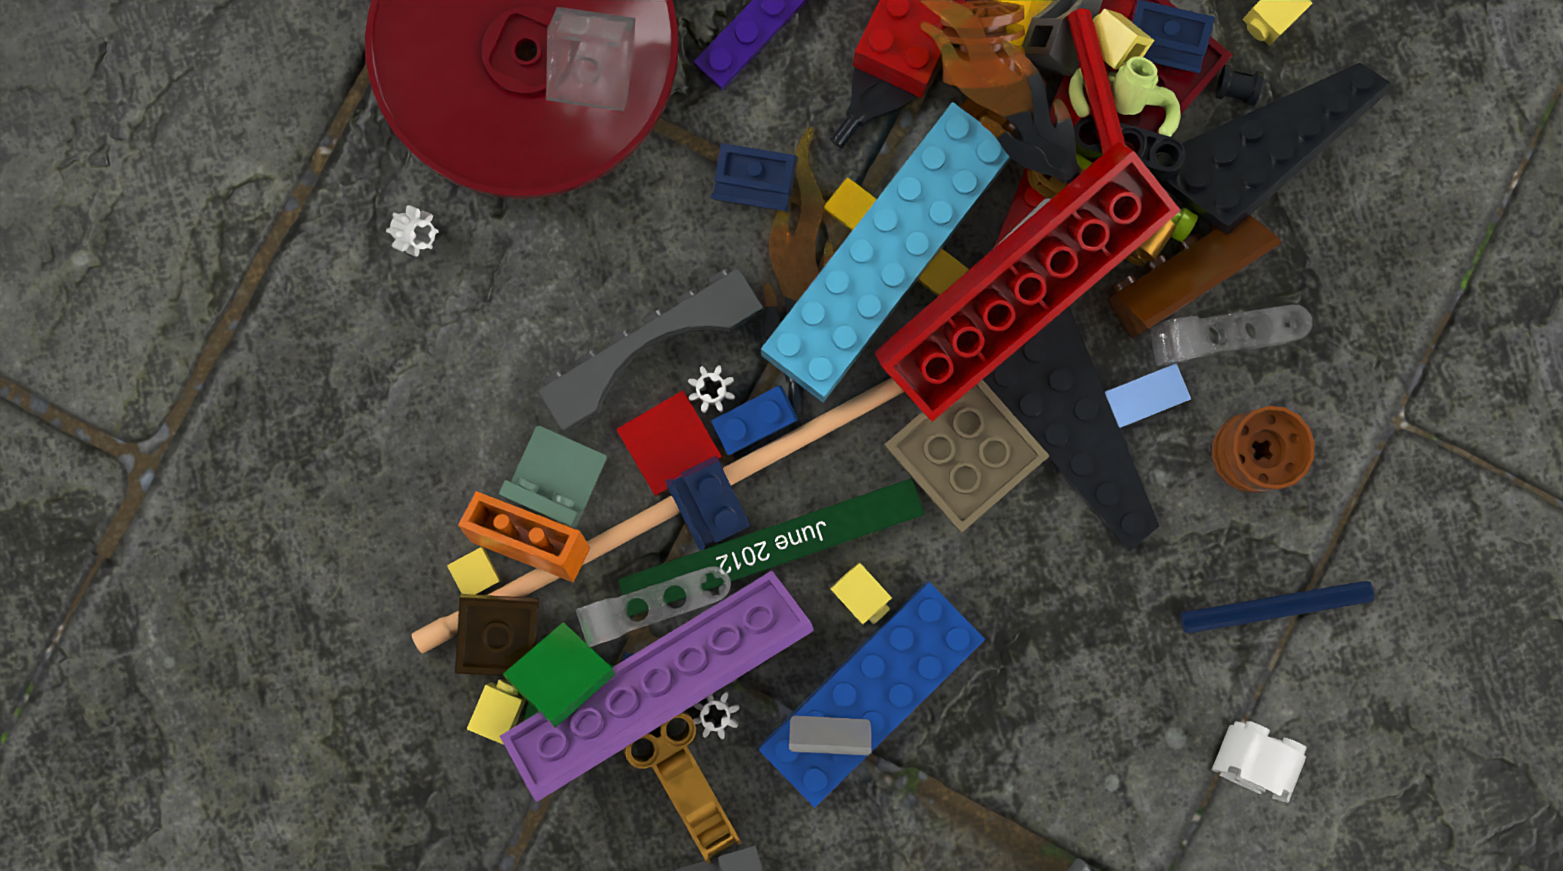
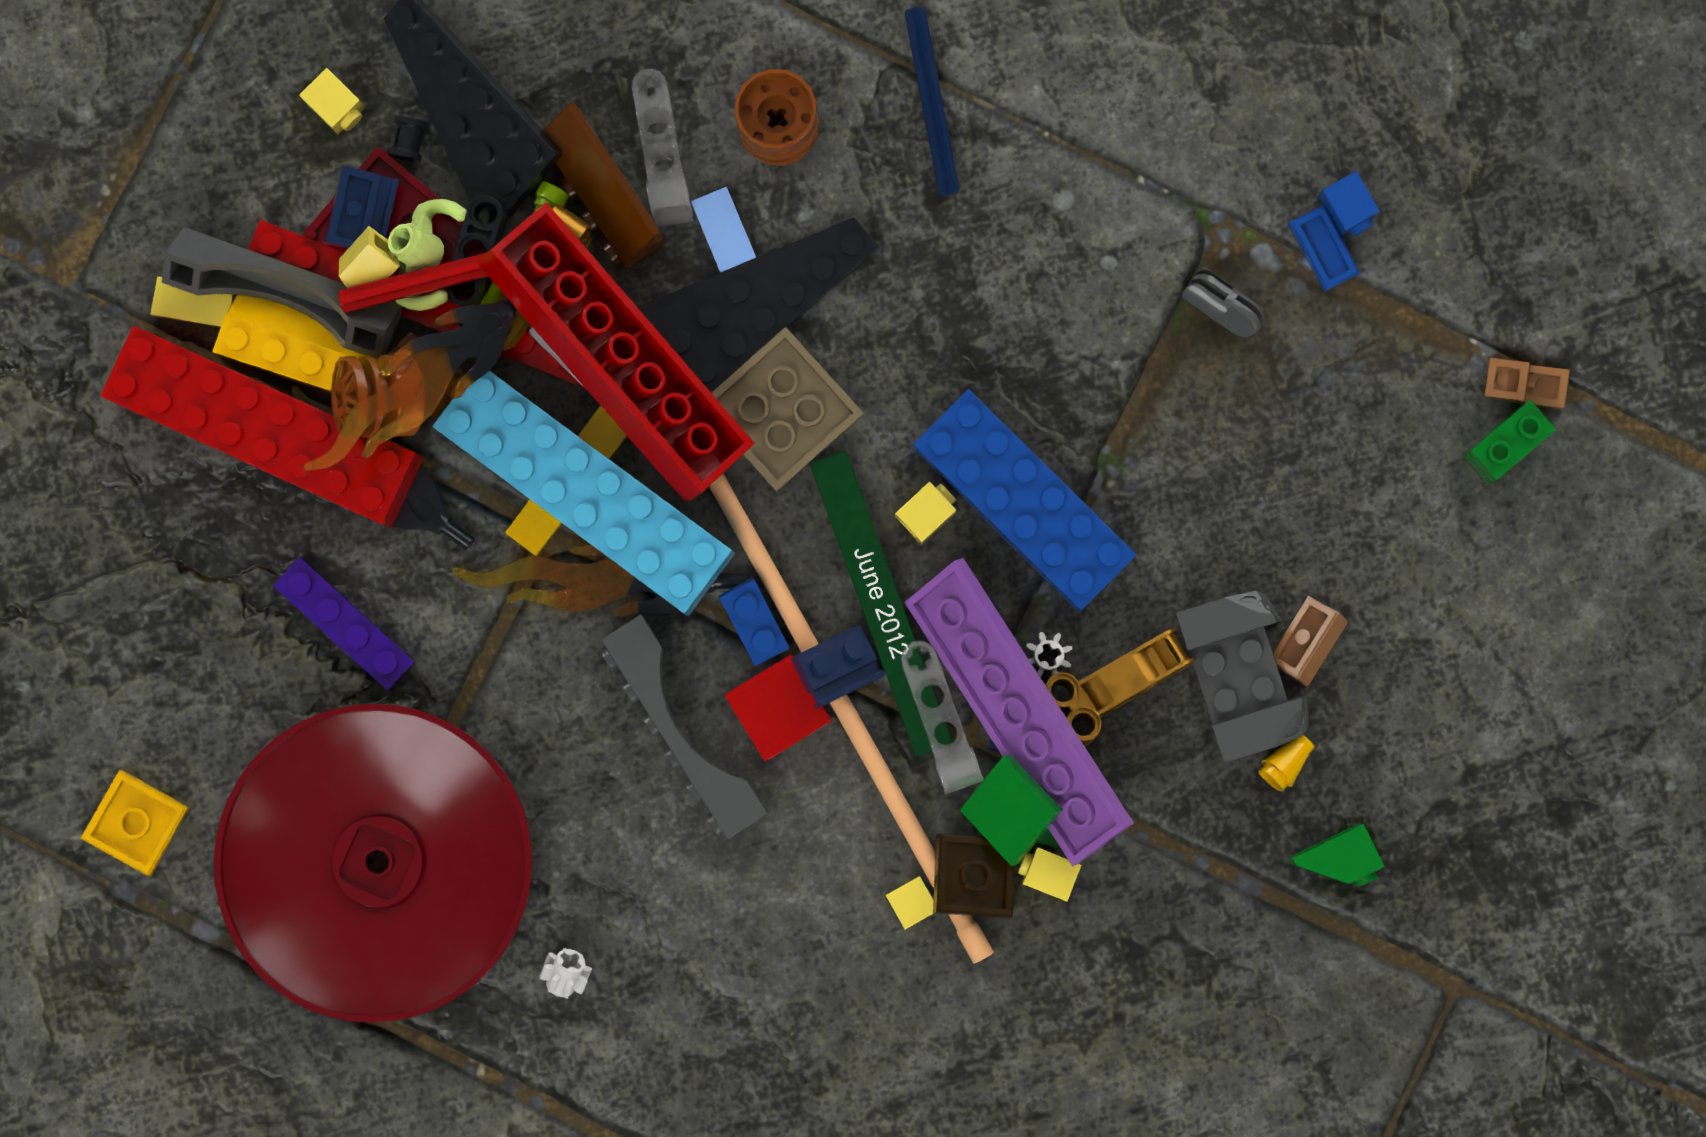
camera: 90 degrees left, 0 degrees up
(524, 536) = (874, 848): orange brick -> none
(555, 476) = (812, 821): sand green bracket -> none
(589, 58) = (393, 790): clear slope -> none
(716, 379) = (712, 662): white gear -> none
(754, 177) = (507, 626): dark blue plate -> none
(830, 735) = (1064, 539): light grey slope -> none
(1260, 761) = (1082, 120): white brick -> none

